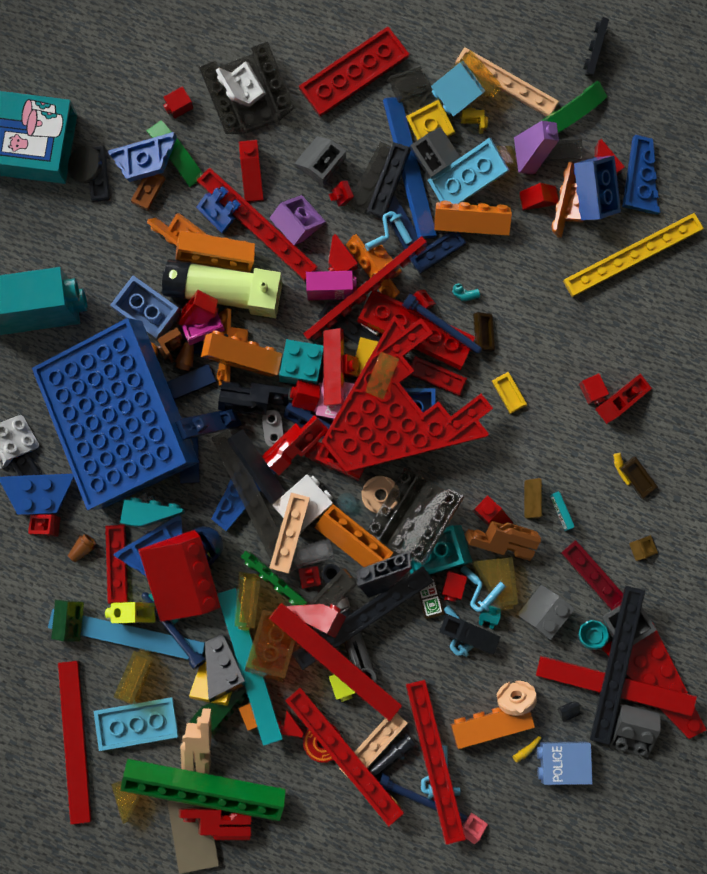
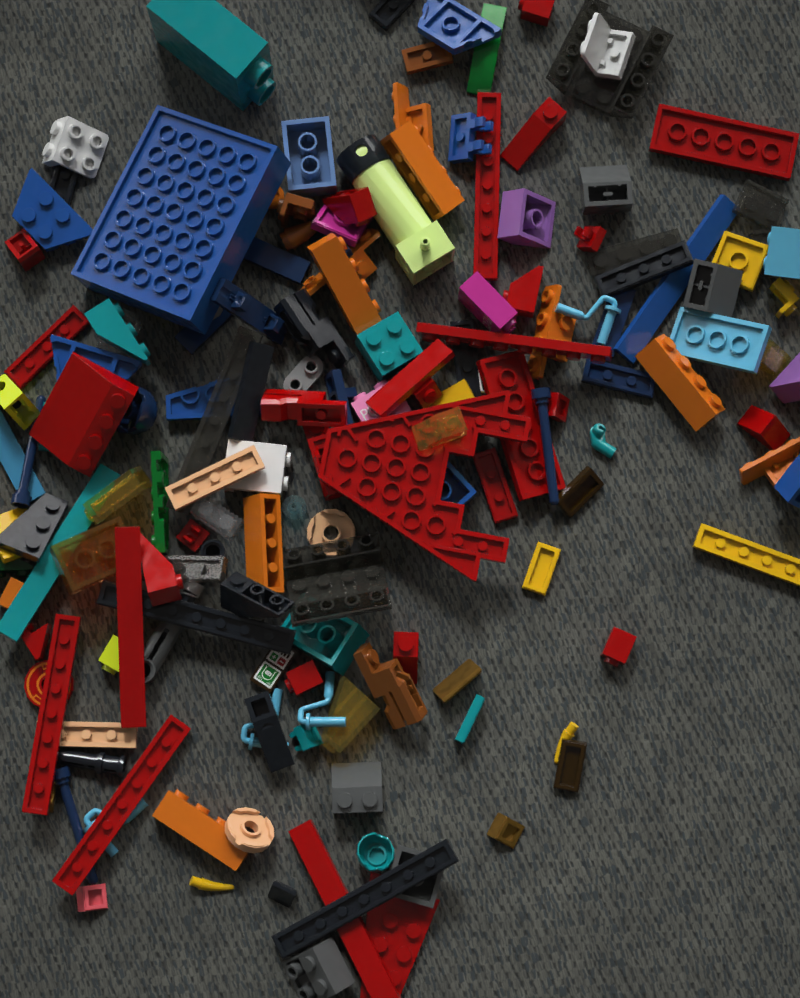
camera: 50 degrees right, 0 degrees up
(82, 547) = (34, 302): dark orange cone -> none
(305, 395) = (360, 377): red brick -> none
(565, 763) = (228, 930): medium blue brick -> none
(593, 575) = (434, 801): dark red plate -> none
(623, 399) = (635, 683): red slope -> none

